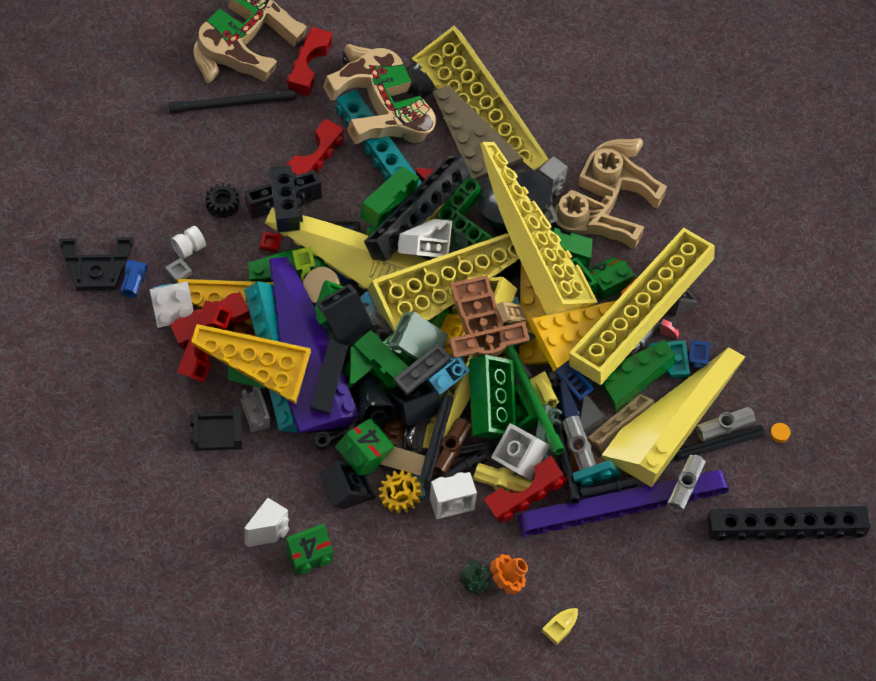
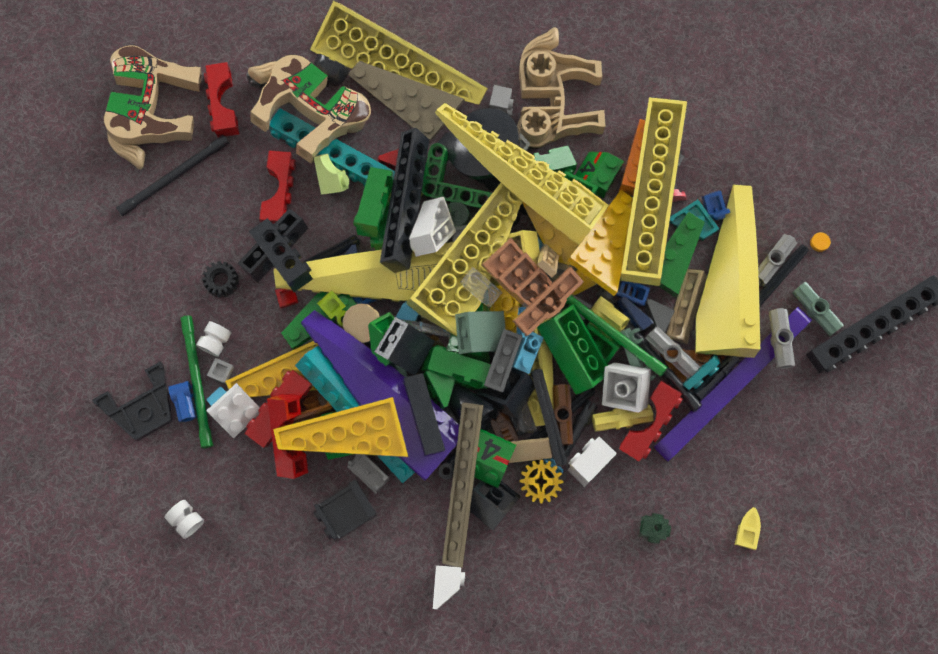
camera: 25 degrees left, 15 degrees up
(80, 365) = (185, 520): none -> white wheel
(137, 309) = (204, 430): none -> green piece
(309, 549) = (498, 587): green slope -> none
(330, 450) = (462, 484): none -> dark tan tile
(364, 162) = (329, 177): none -> yellowish green arch
(439, 304) = (481, 287): none -> clear tile
(509, 573) = (680, 509): orange plant -> none
(738, 473) = (809, 300): none -> sand green piece

